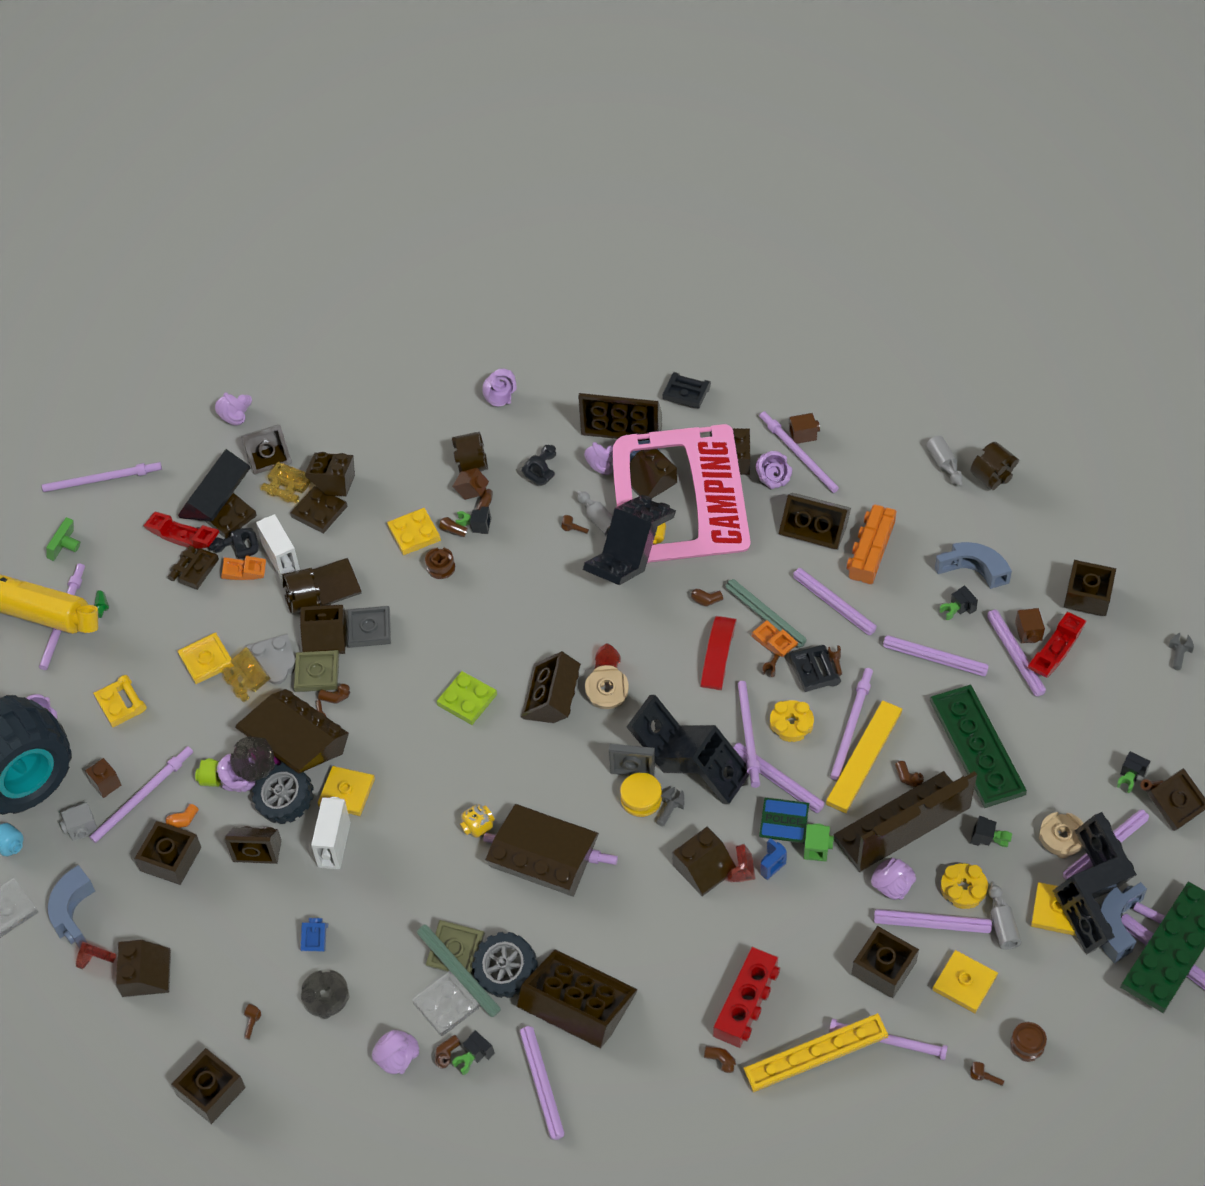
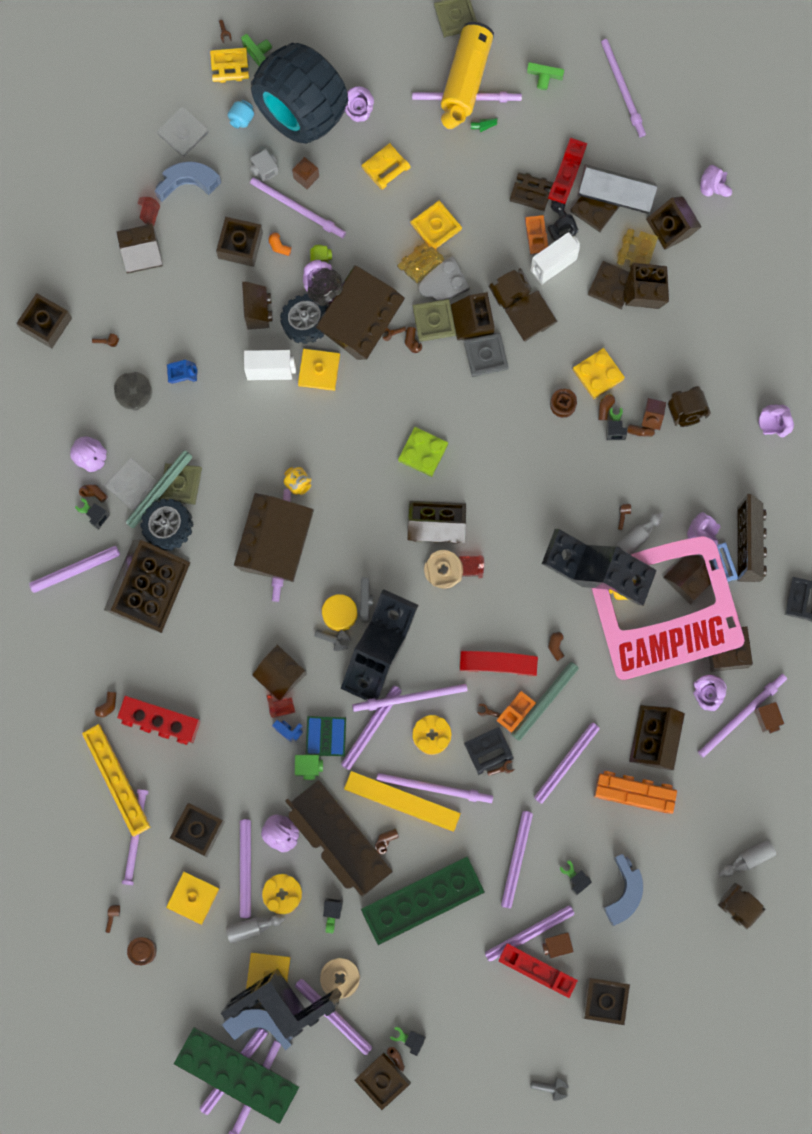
camera: 80 degrees right, 25 degrees up
(537, 465) = (689, 470): black piece -> none

